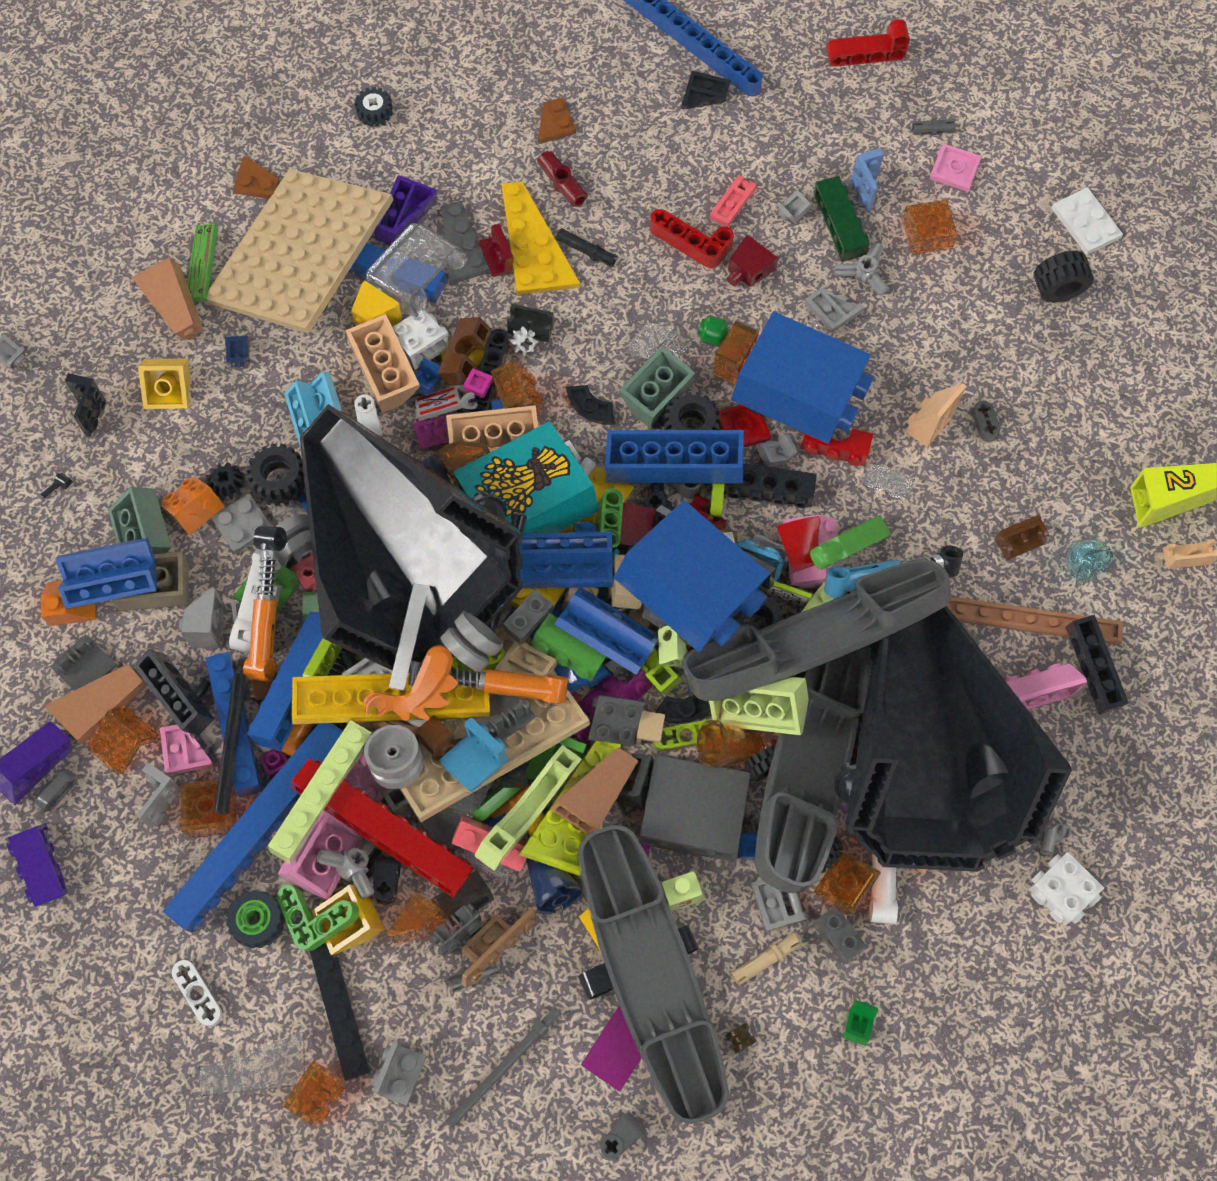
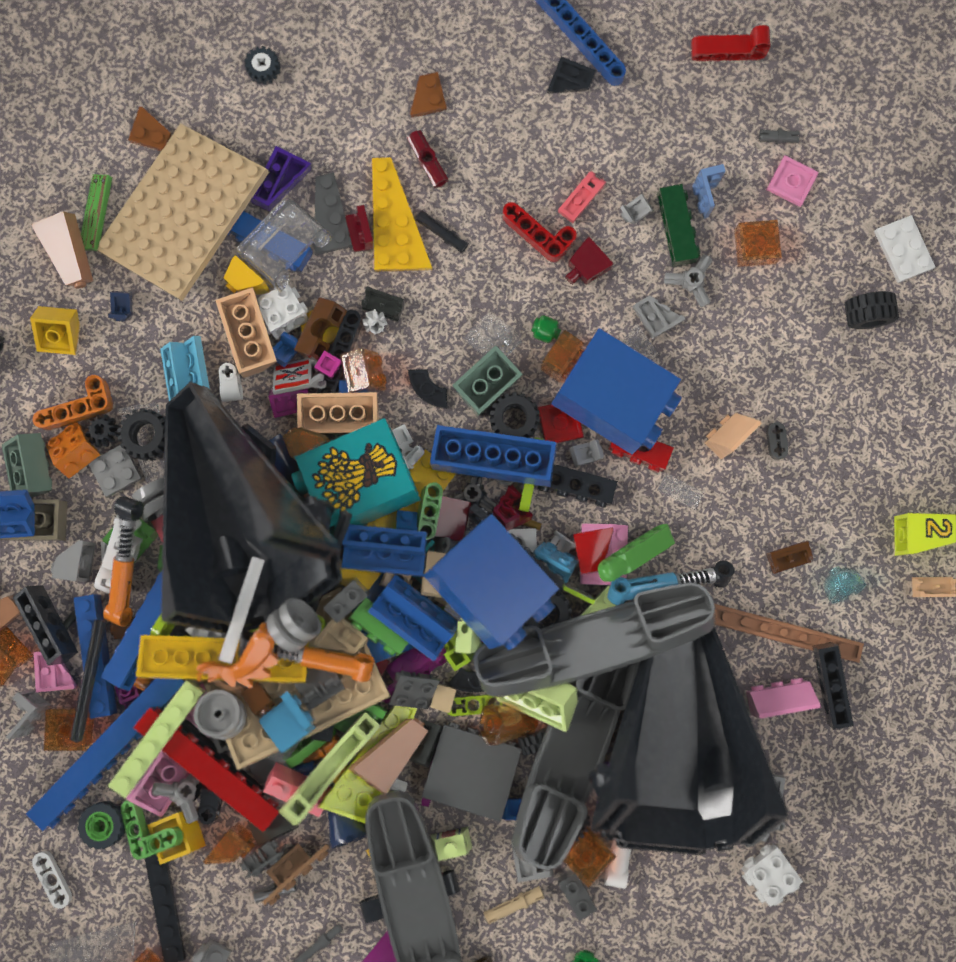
camera: 10 degrees right, 15 degrees up
(189, 460) = (73, 407): none -> orange beam

